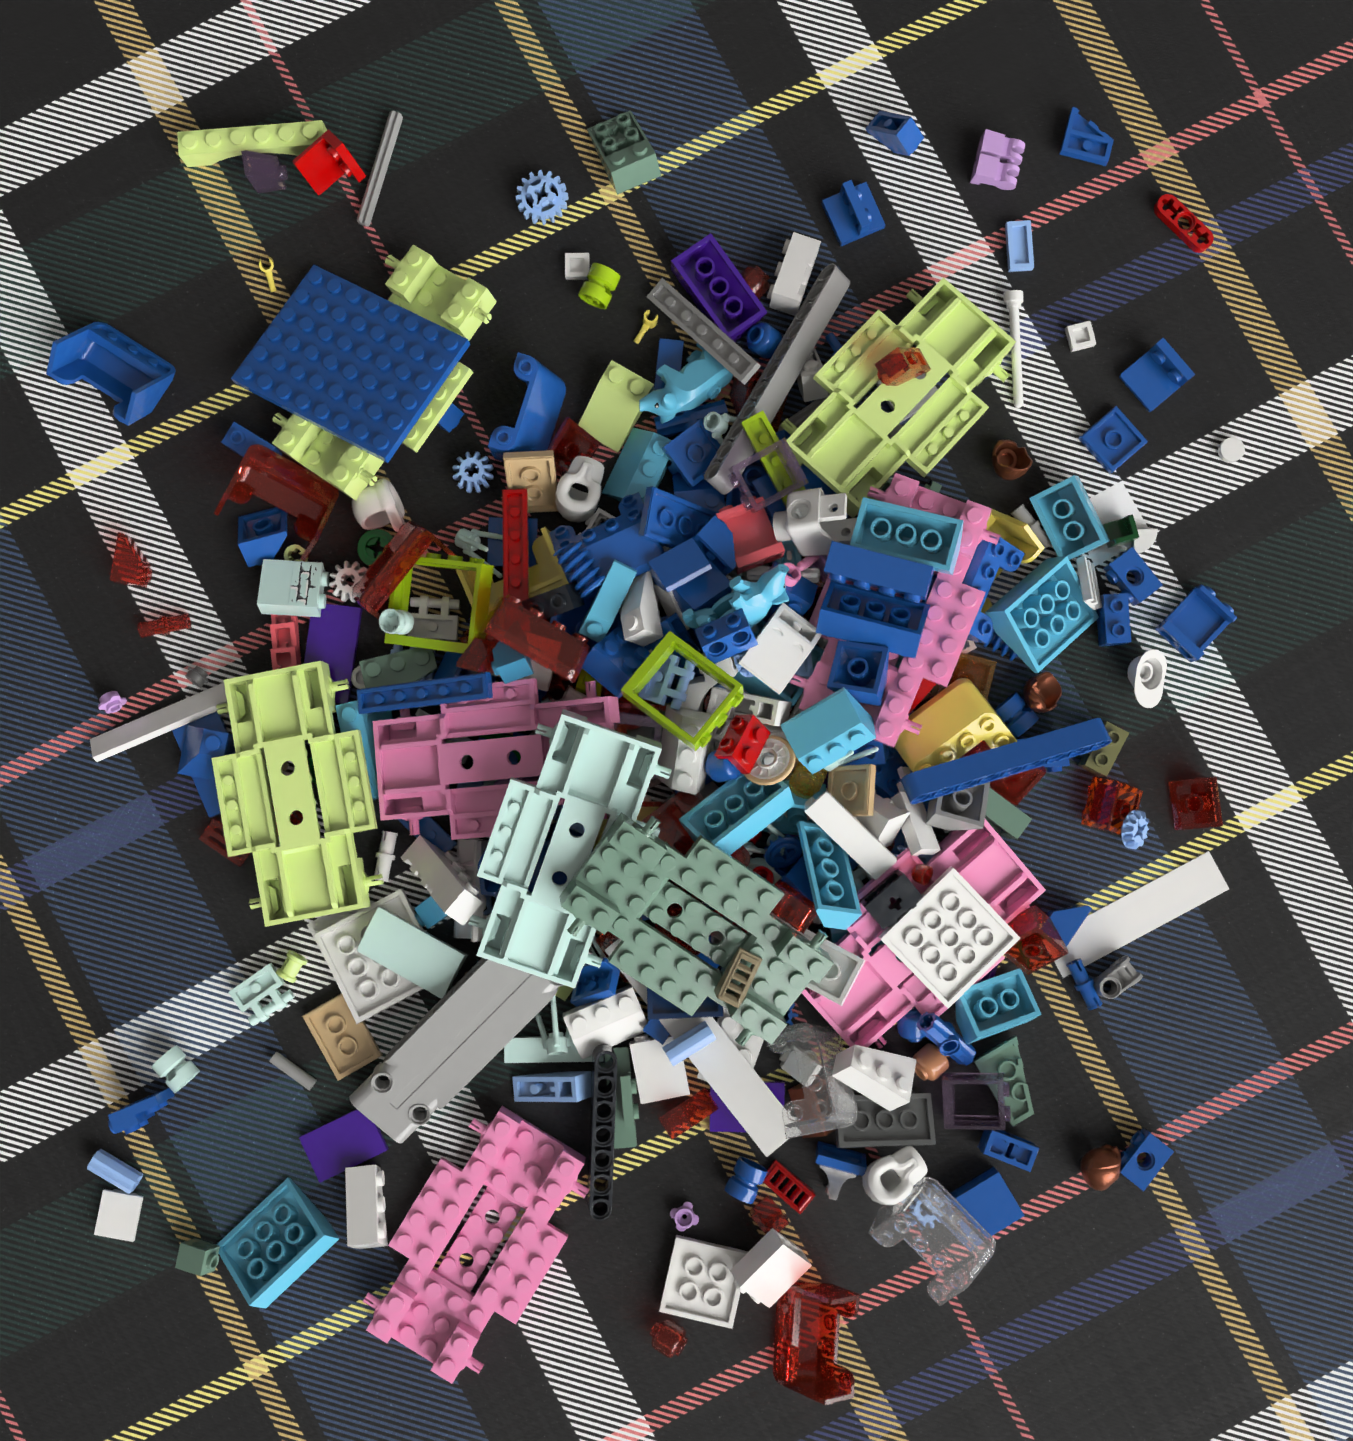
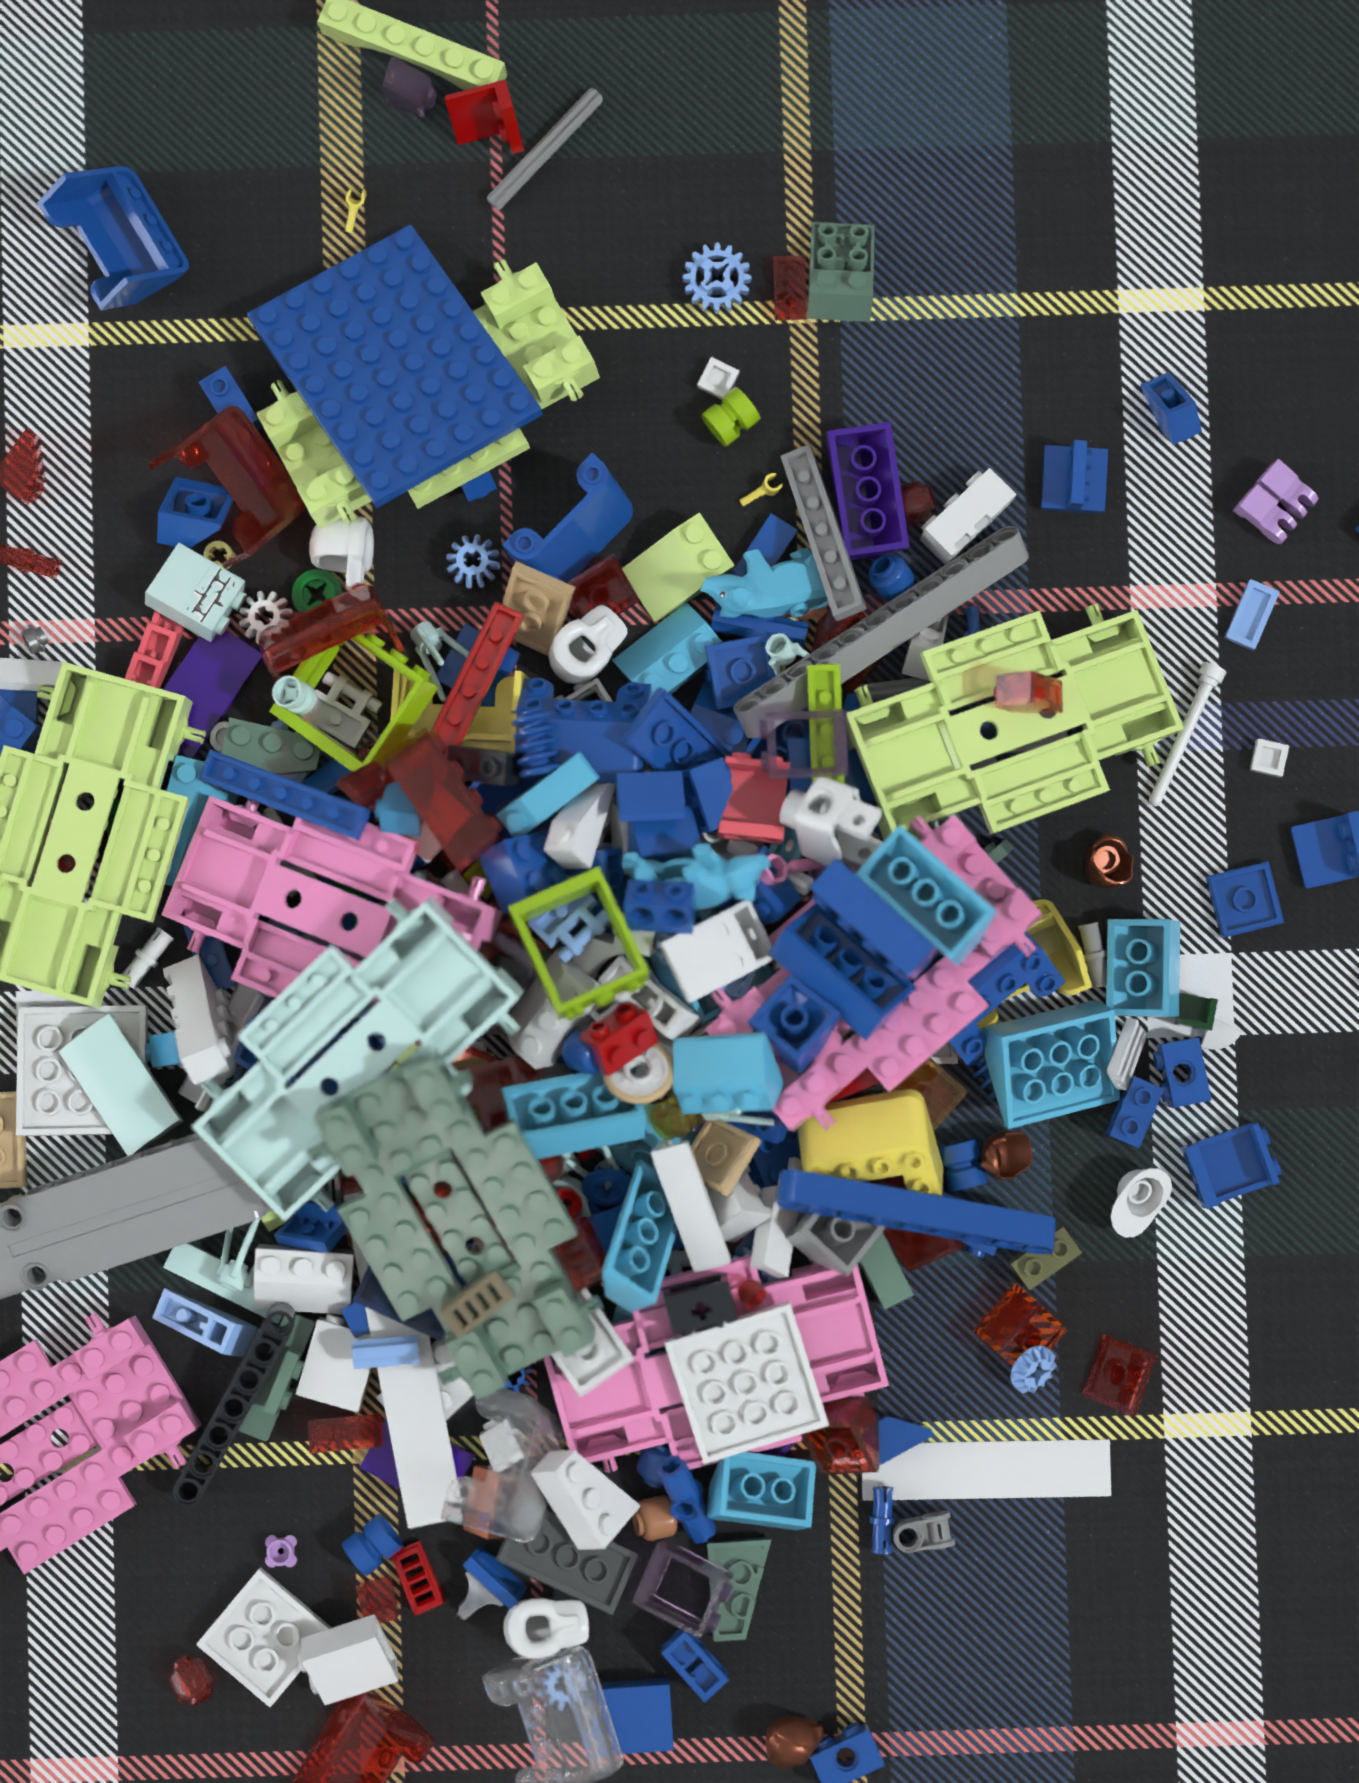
camera: 30 degrees right, 0 degrees up
(594, 180) = (789, 287): none -> clear red slope

